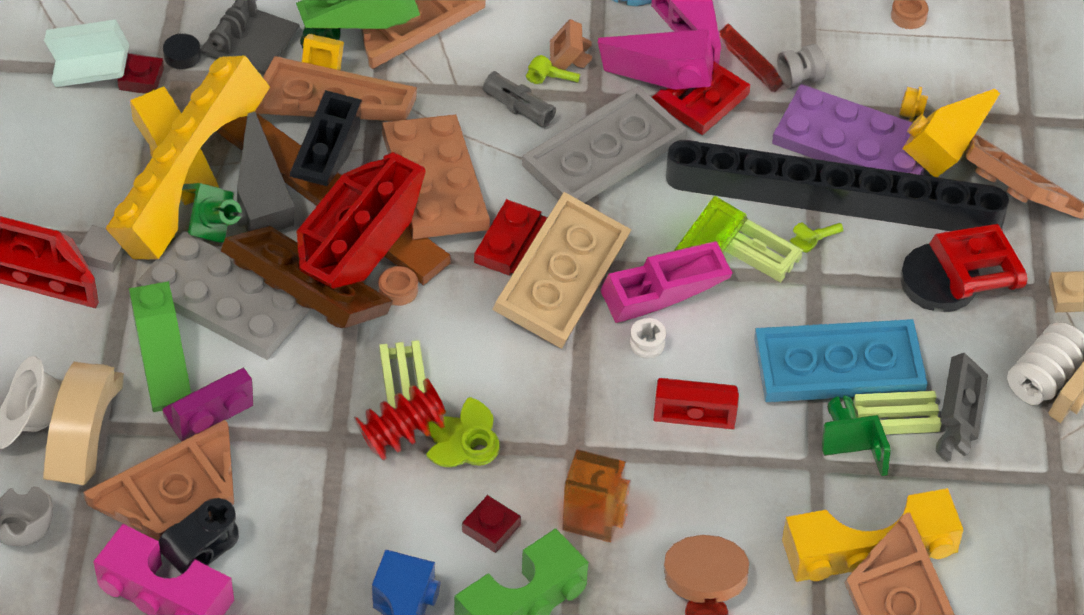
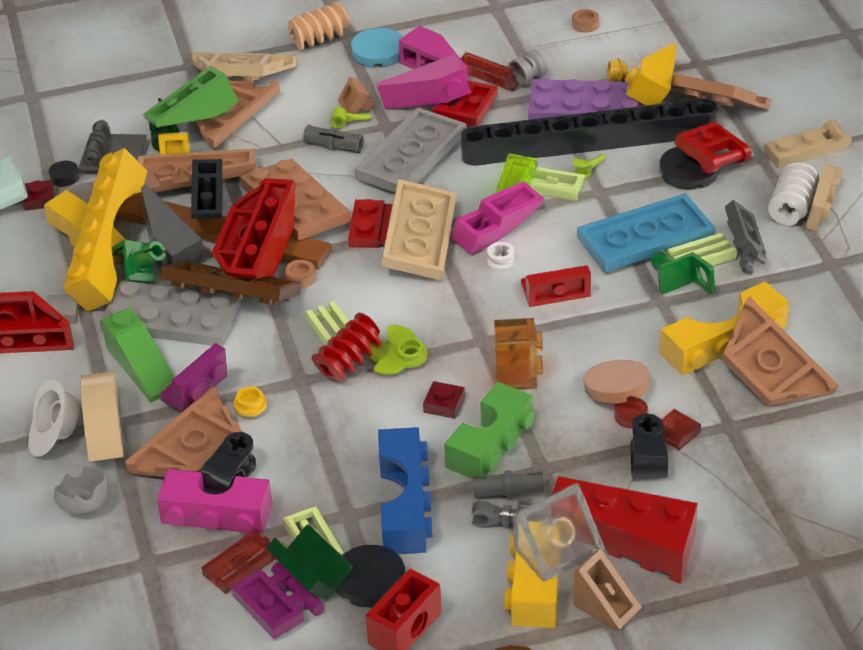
camera: 15 degrees left, 10 degrees down
(262, 453) = (250, 402): none -> yellow plate

